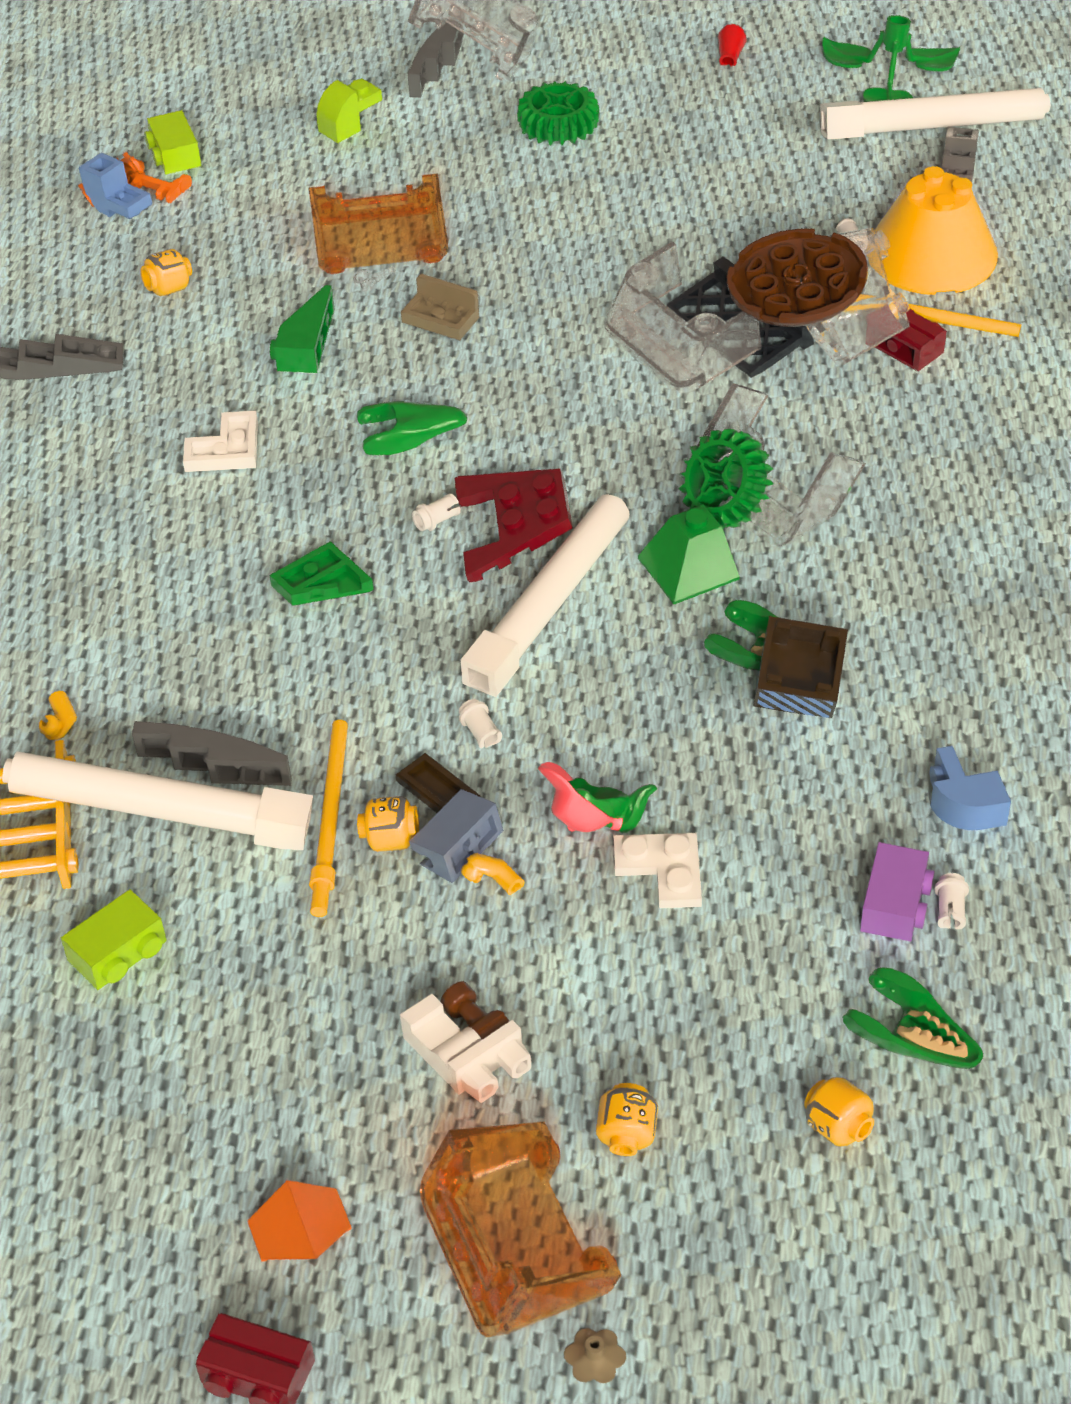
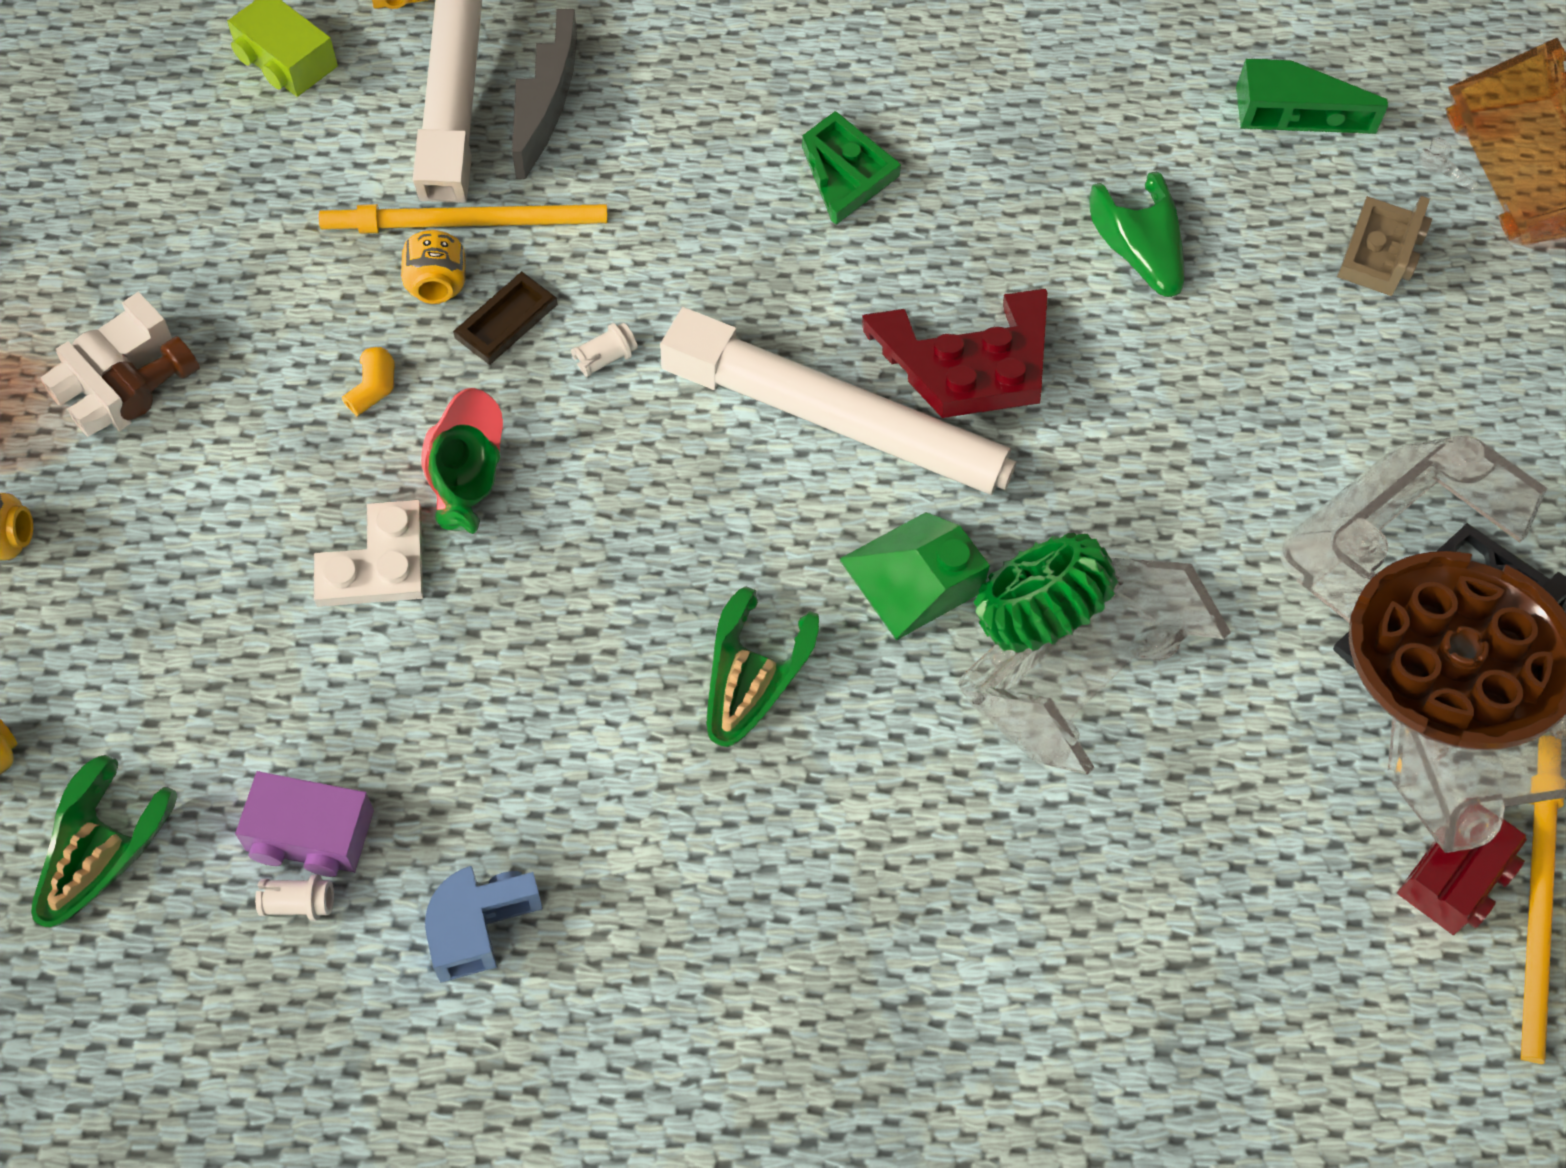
camera: 80 degrees right, 15 degrees up
(231, 450) = (1072, 56): white plate -> none
(436, 512) = (976, 273): white pin -> none
(455, 832) = (419, 336): sand blue hinge -> none
(800, 667) = (682, 697): dark brown container -> none

